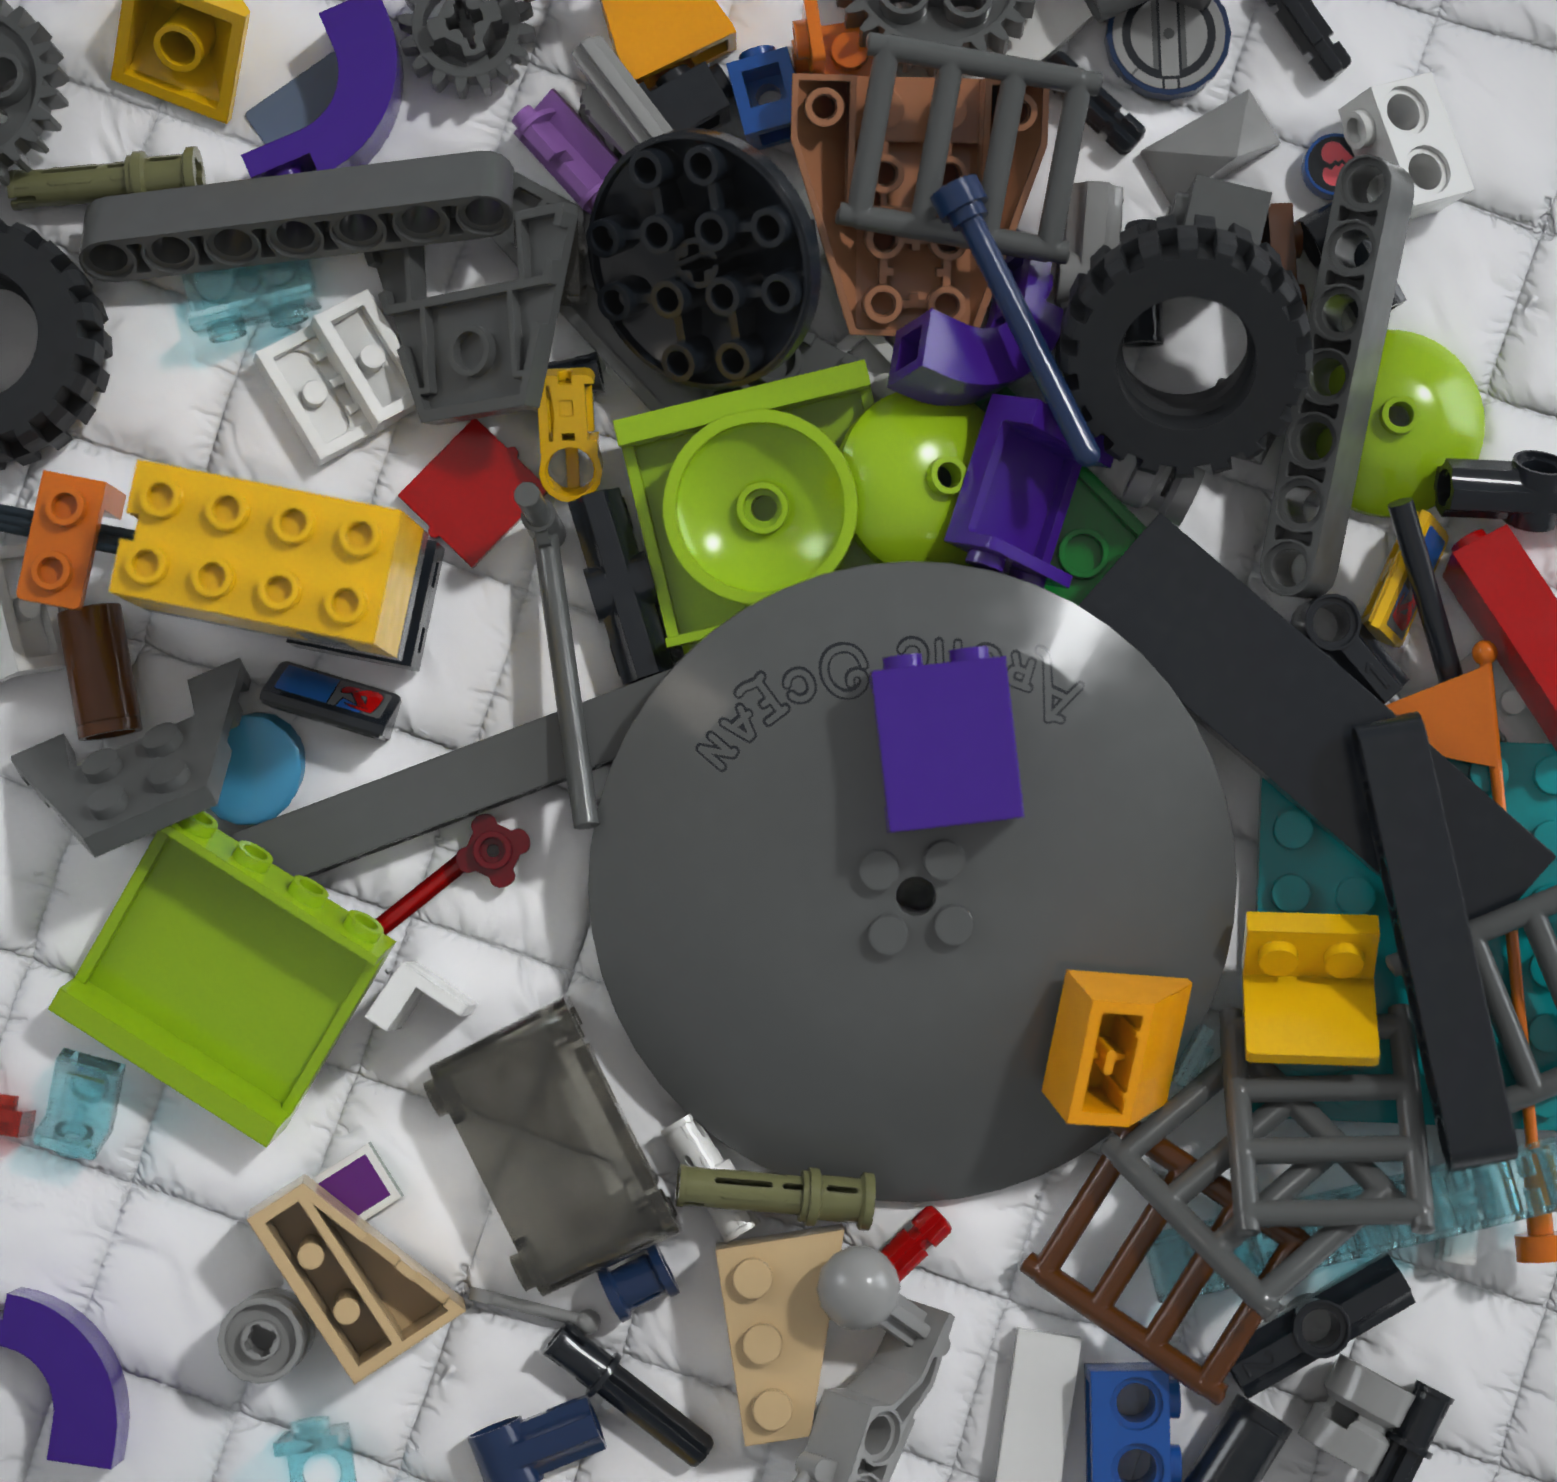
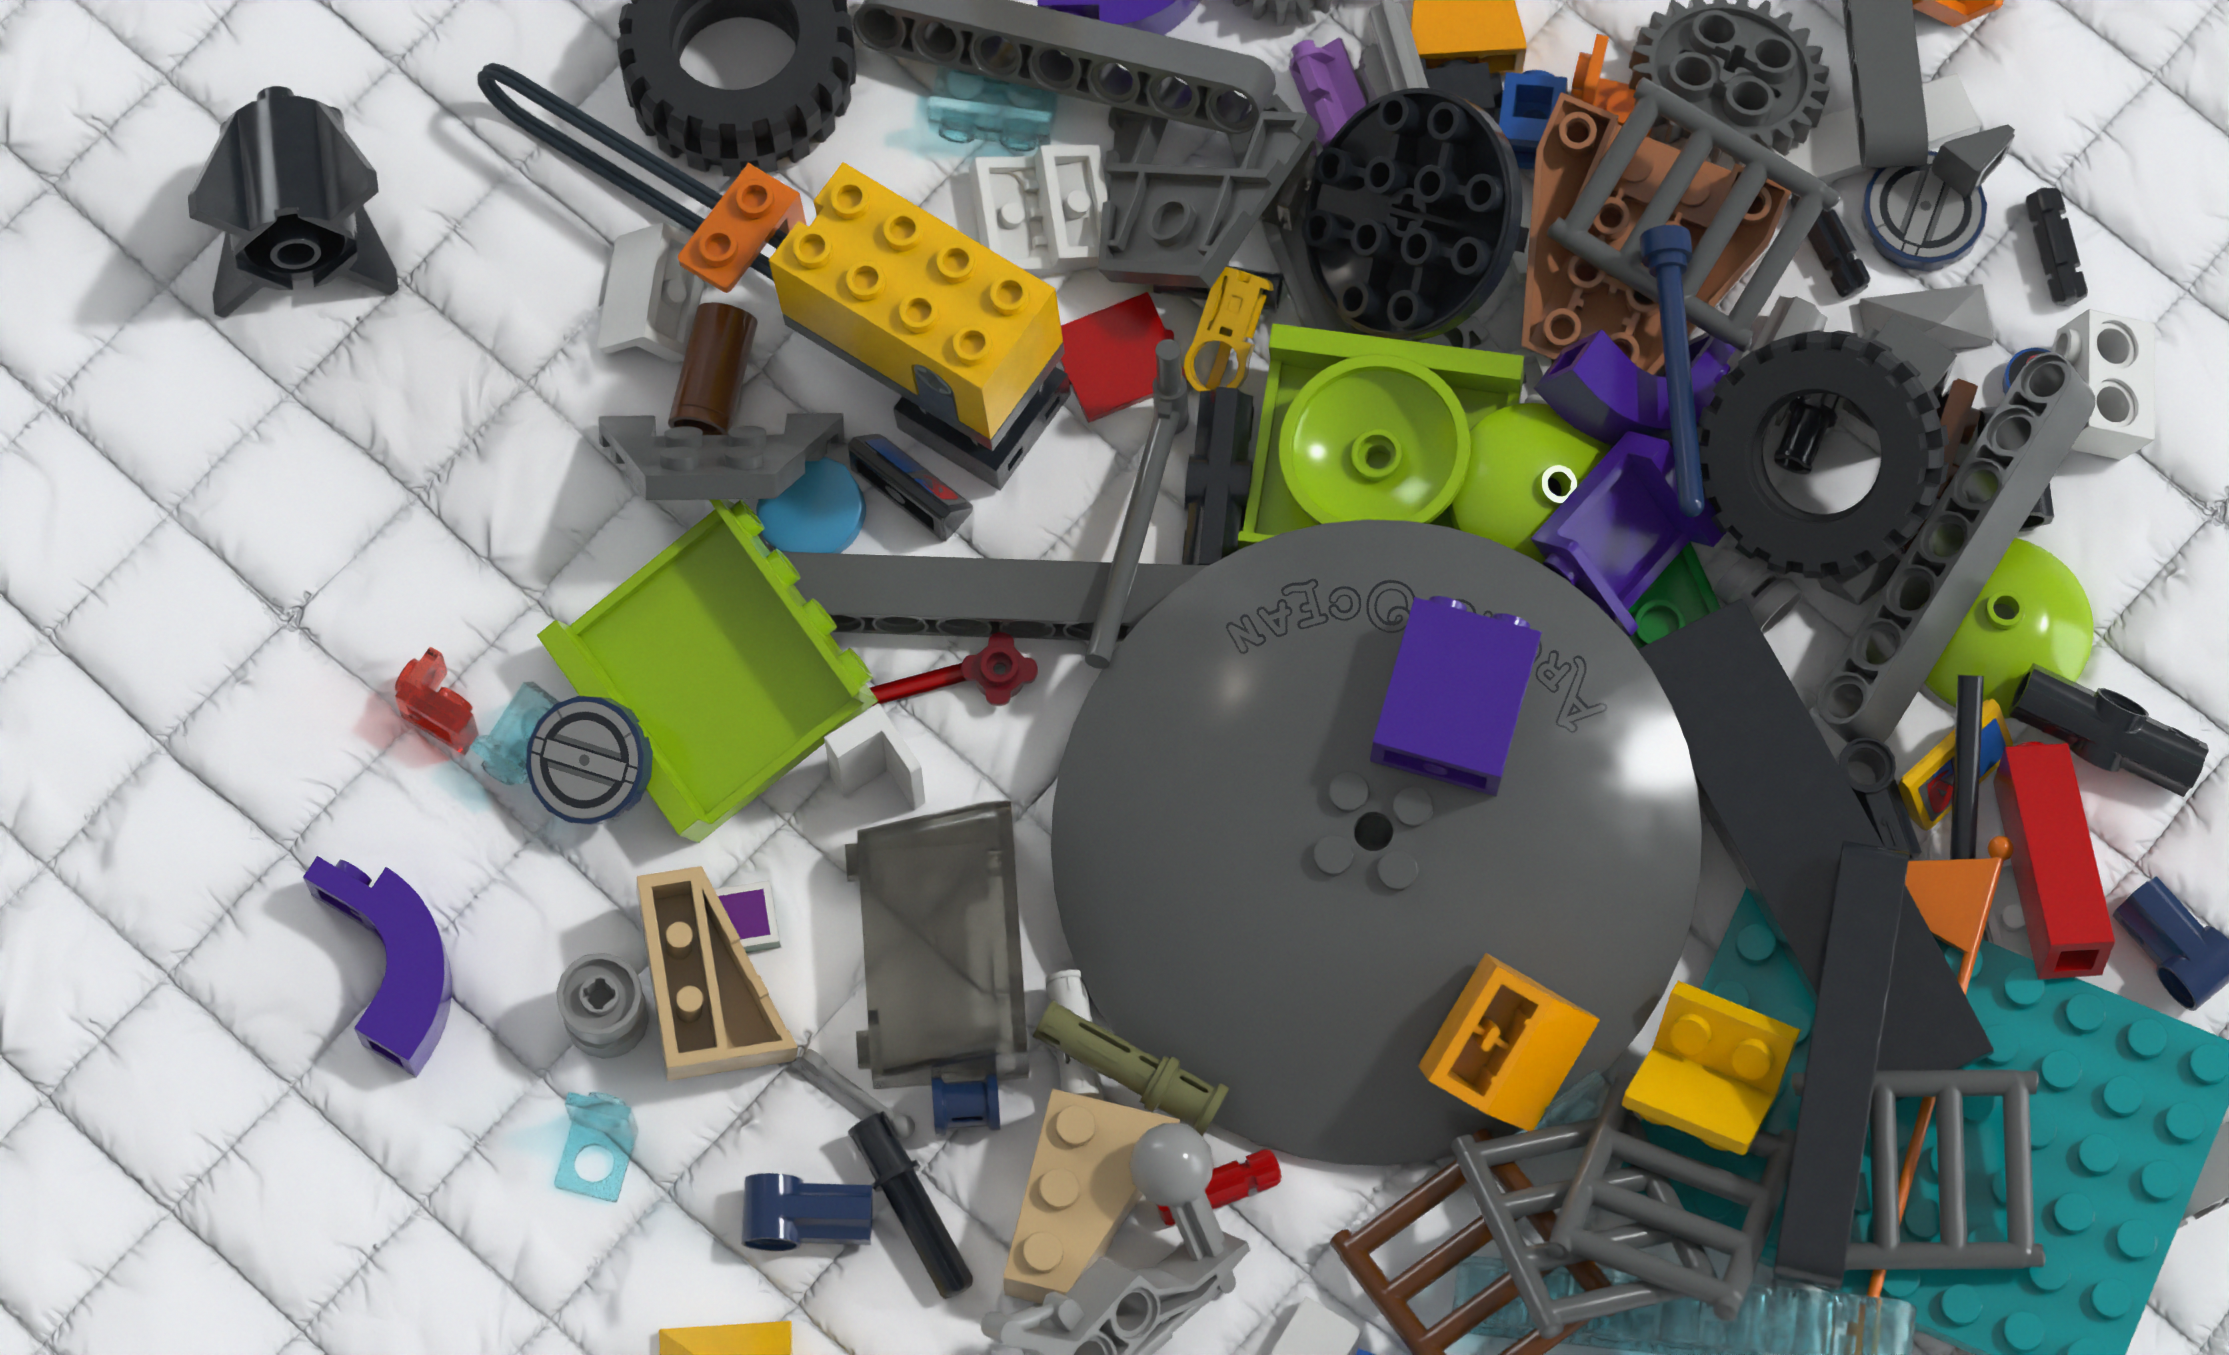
camera: 30 degrees right, 15 degrees down
(151, 1112) = (588, 760): none -> tile

